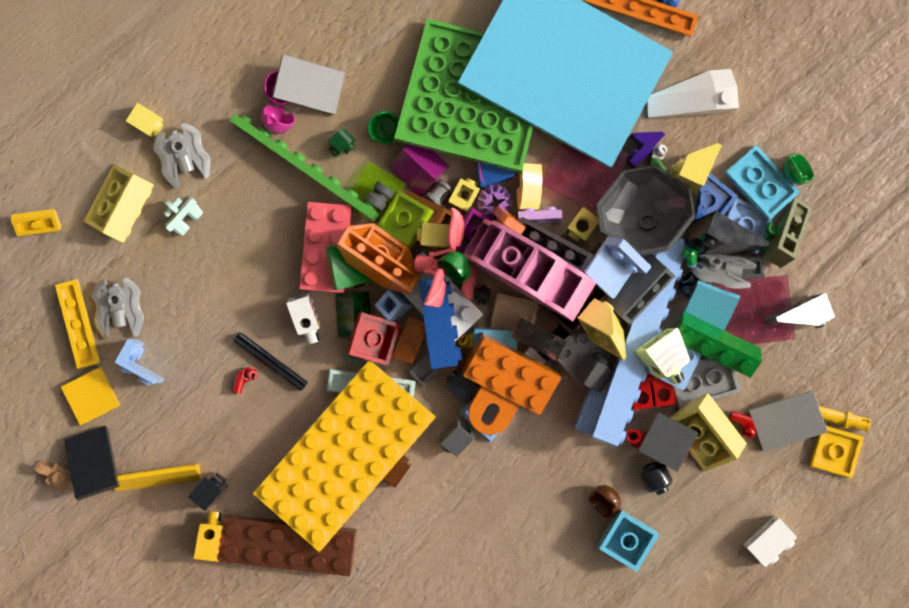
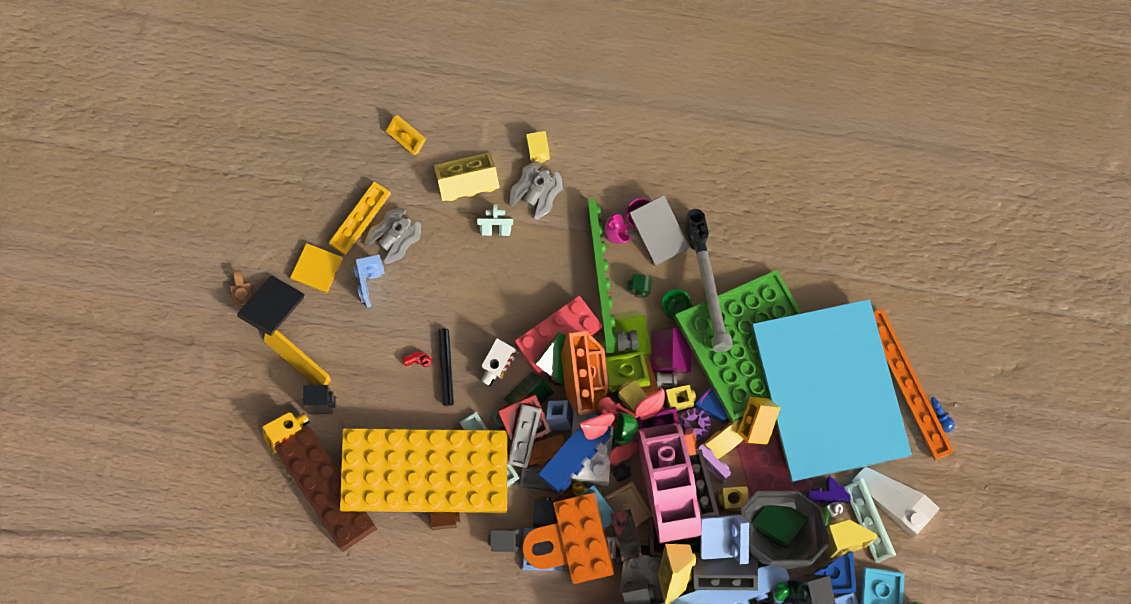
camera: 50 degrees right, 15 degrees down
(386, 349) = (524, 436): none -> light grey tile
(451, 121) = (721, 341): none -> flat silver piece
(540, 150) = (758, 420): none -> yellow brick
(636, 208) = (780, 523): none -> dark green tile
(691, 132) = (869, 518): none -> light aqua tile

